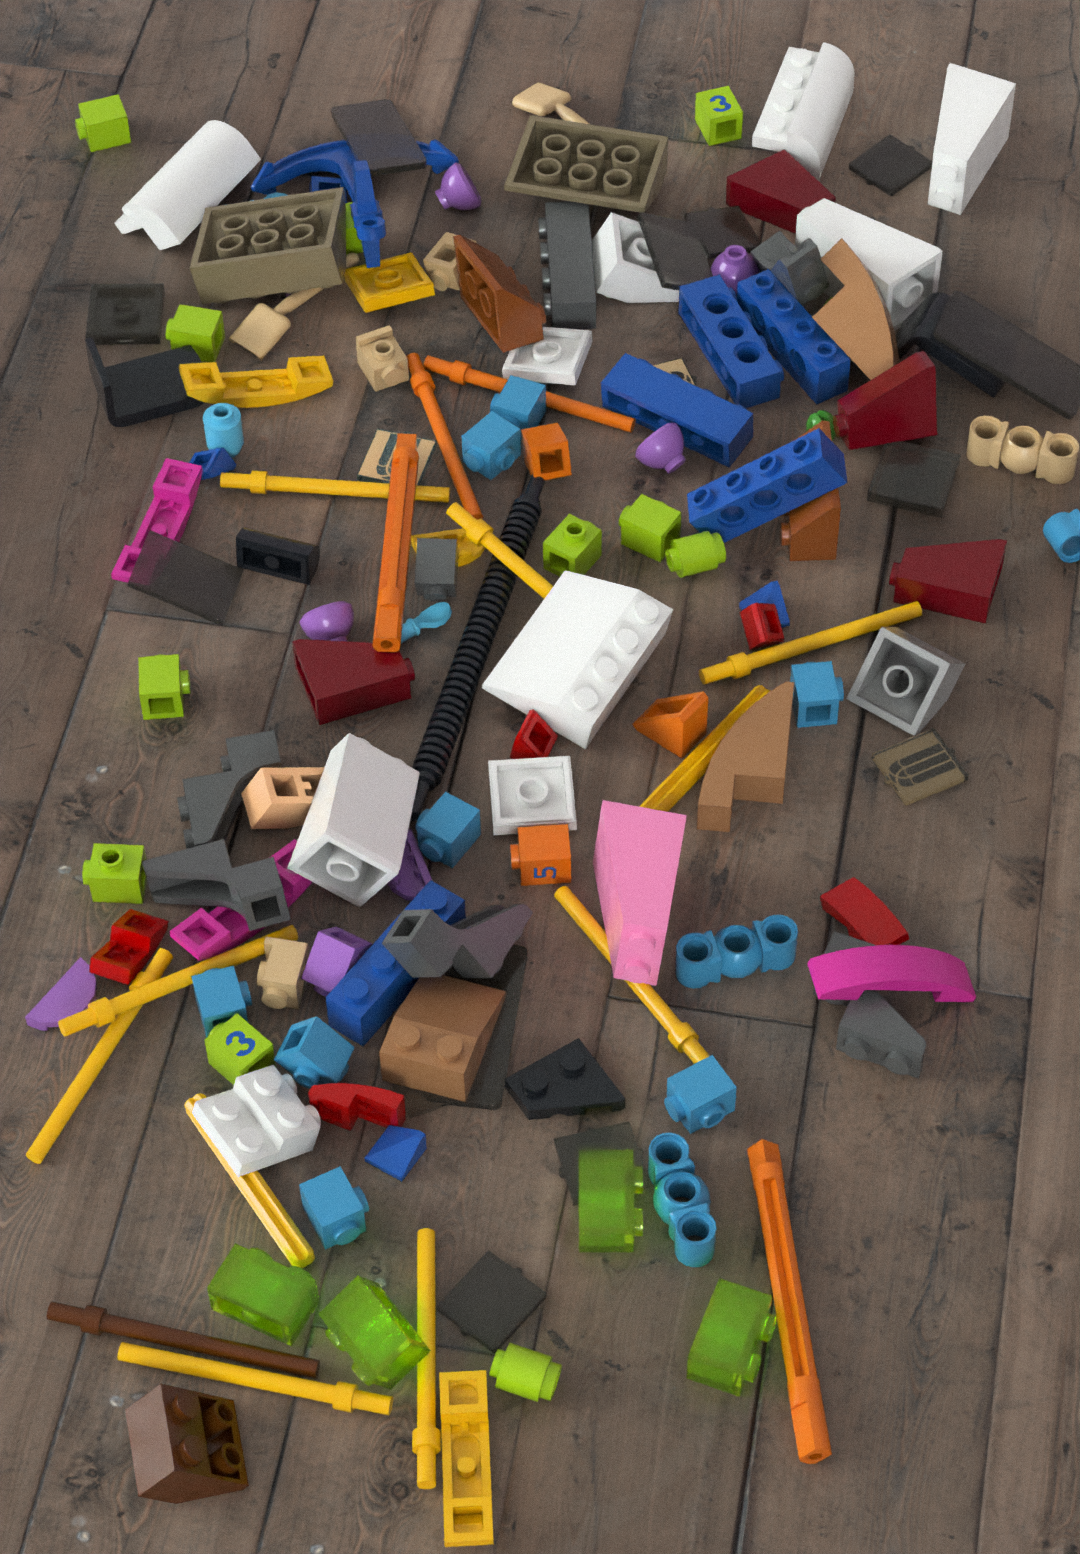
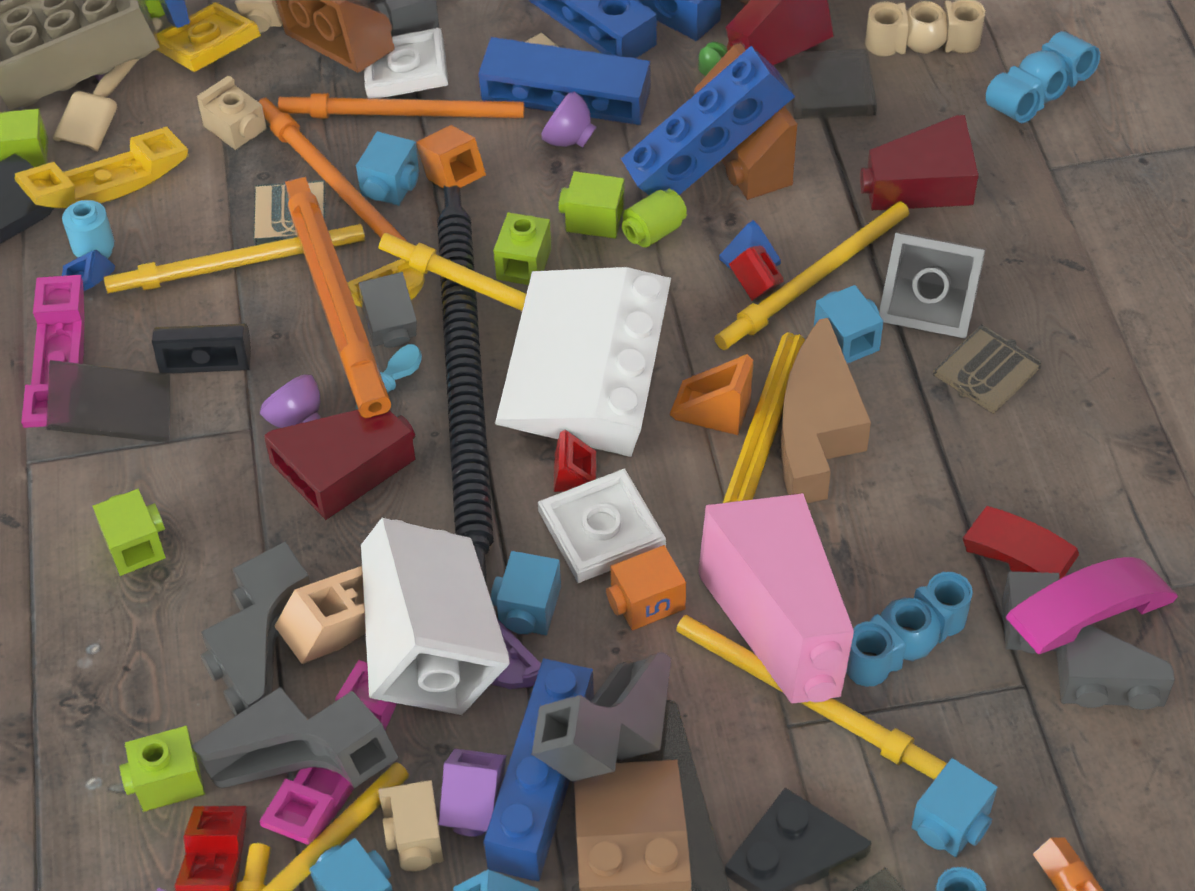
camera: 20 degrees left, 0 degrees up
(521, 402) = (399, 115): dark azure brick -> none

